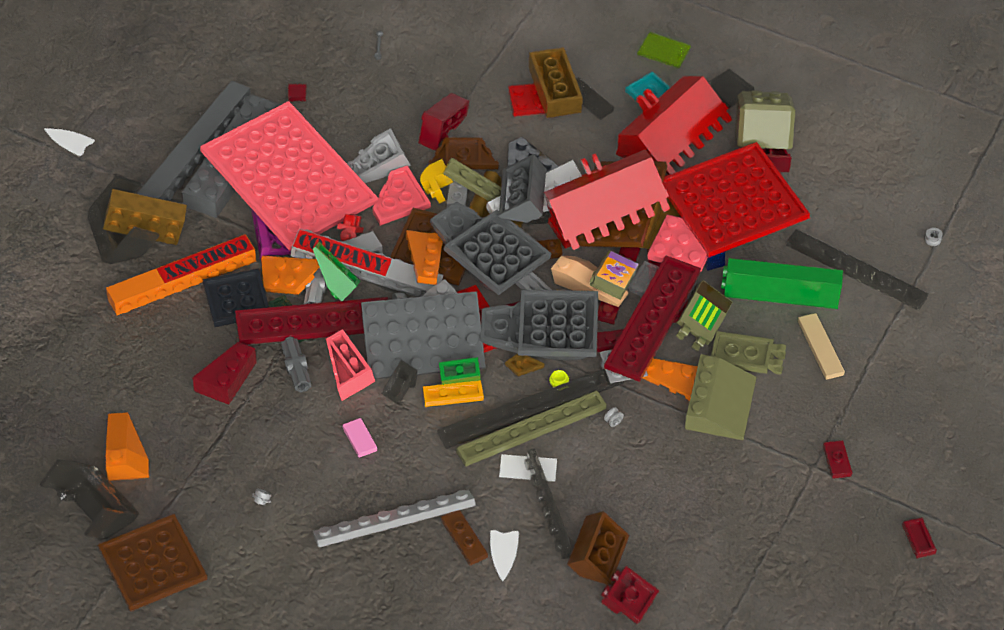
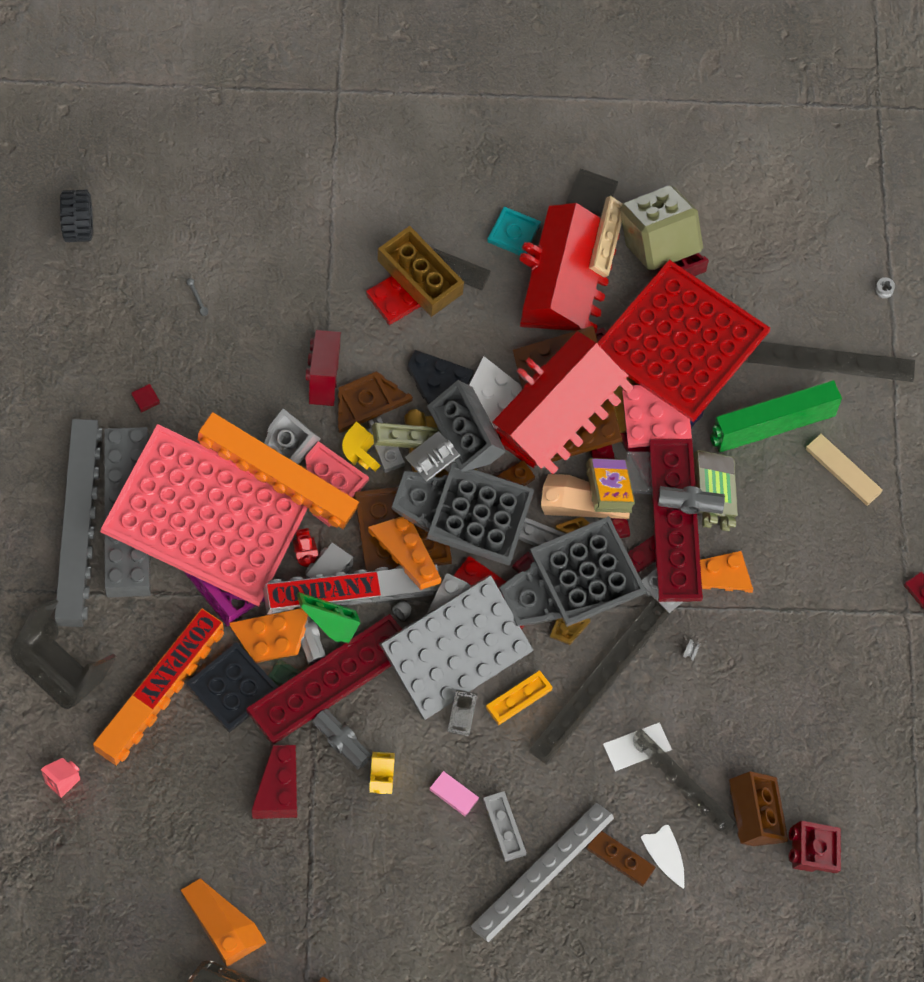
camera: 30 degrees left, 15 degrees up
(69, 299) = (60, 776): none -> coral slope
(145, 212) = (86, 640): pearl gold brick -> none
(261, 496) = (398, 911): light grey plate -> none
(311, 398) = (382, 772): none -> yellow brick
(349, 366) = (398, 716): coral wedge -> none
(360, 166) = (277, 471): none -> orange brick
(384, 475) = (504, 826): none -> light grey plate
(460, 371) = (516, 672): green brick -> none
(483, 199) = (432, 456): none -> light grey hinge
(531, 428) = (618, 701): olive plate -> none
(558, 377) = (613, 630): neon yellow plate -> none
(664, 50) = (499, 171): clear neon green container -> none
(671, 304) = (691, 500): none -> dark grey piece
(716, 115) = (606, 237): none -> tan tile
(720, 398) = (781, 579): olive slope -> none
(749, 352) = (777, 512): olive tile -> none

